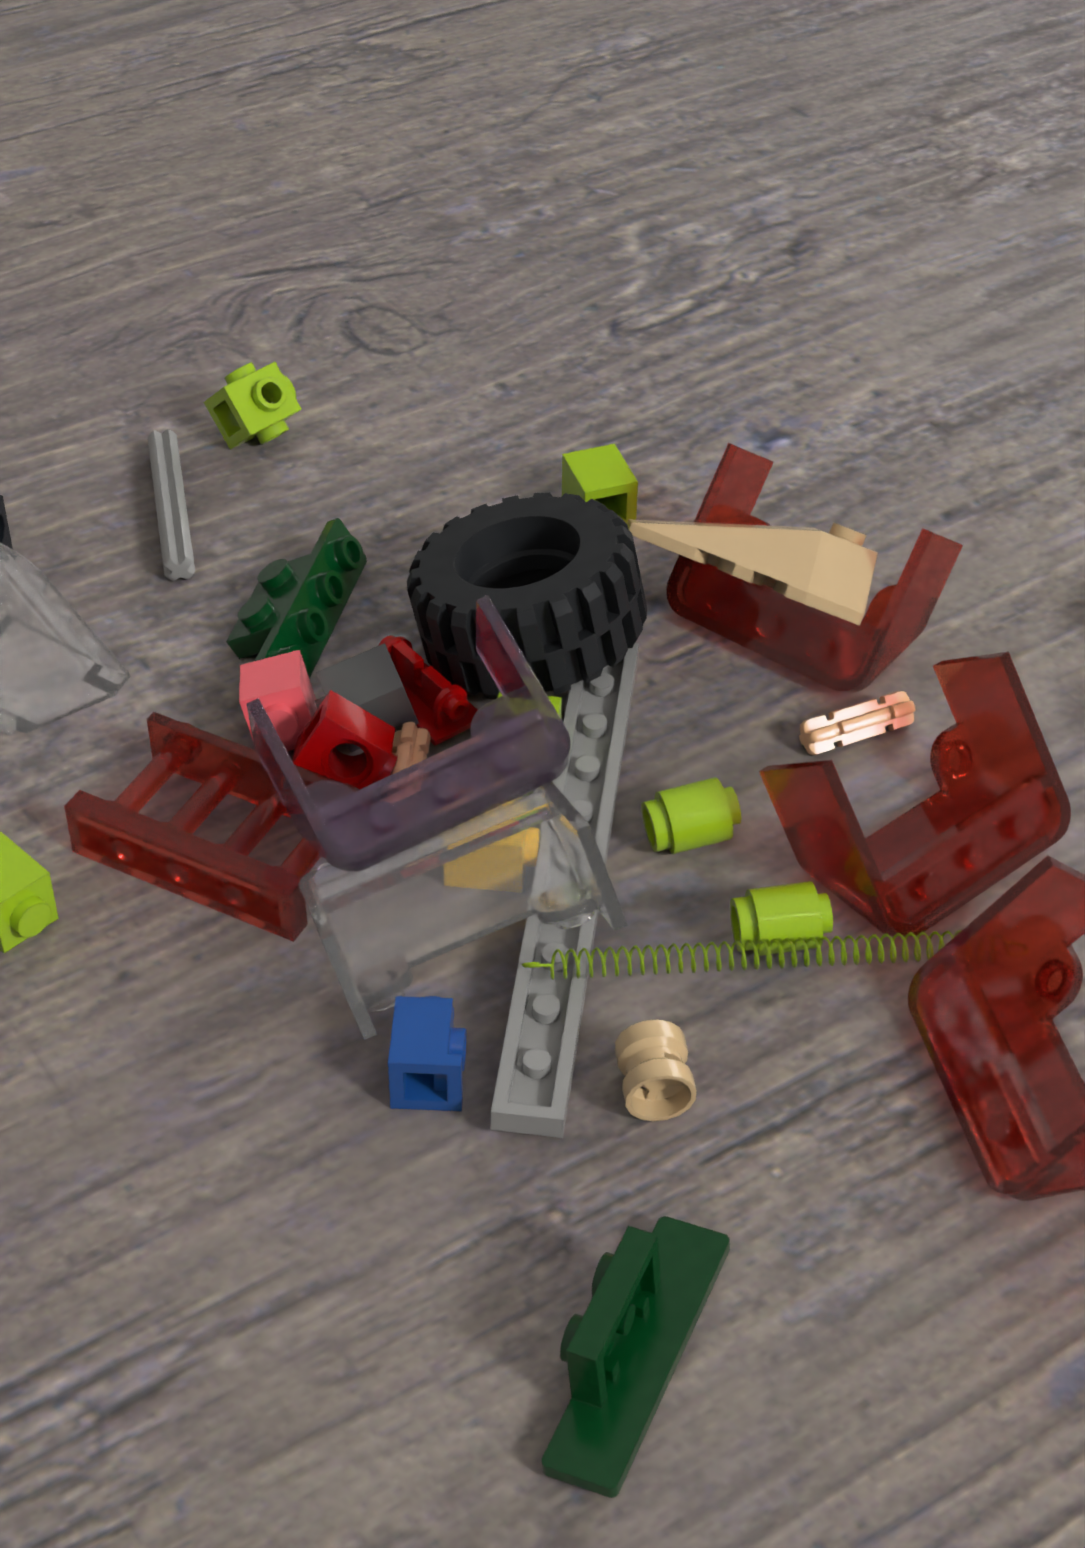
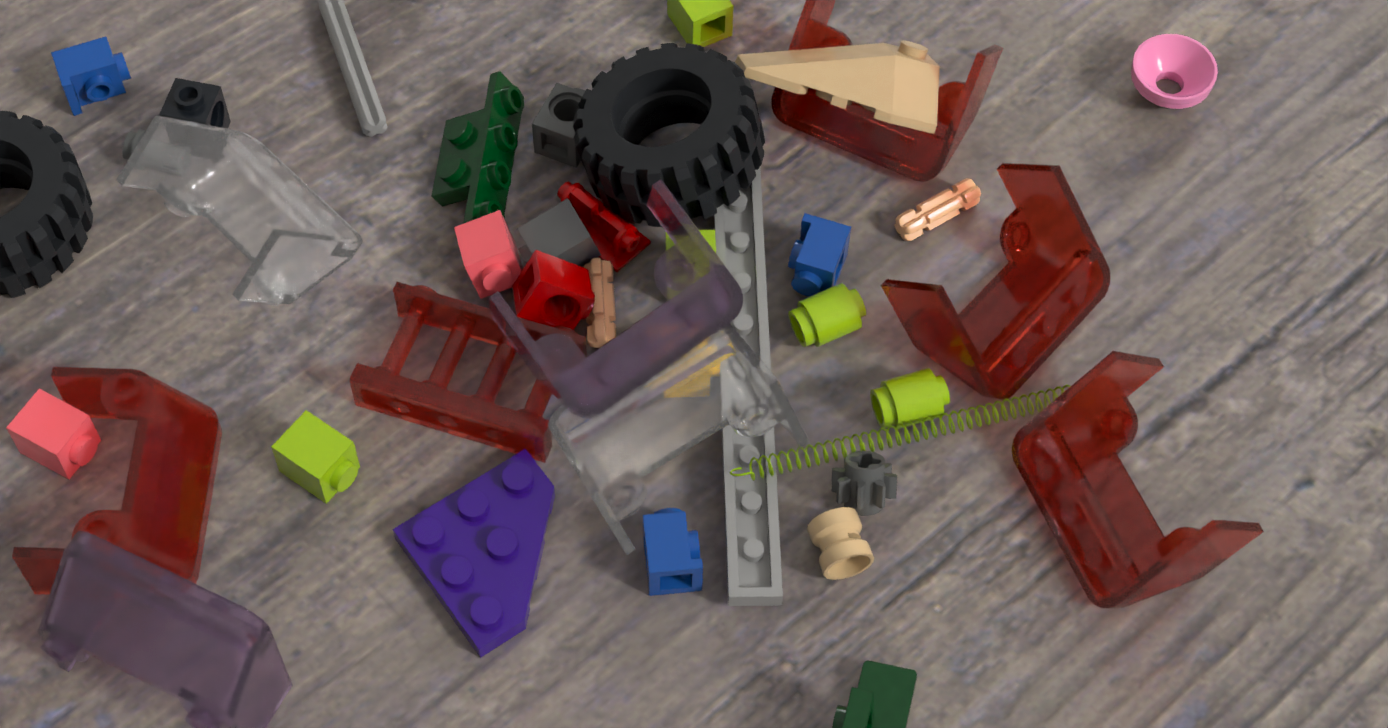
camera: 10 degrees left, 15 degrees up
(188, 1025) = (484, 549): none -> dark purple plate
(386, 587) = (554, 125): none -> dark grey brick
(695, 746) = (818, 254): none -> blue brick
(701, 1001) = (864, 482): none -> dark grey gear

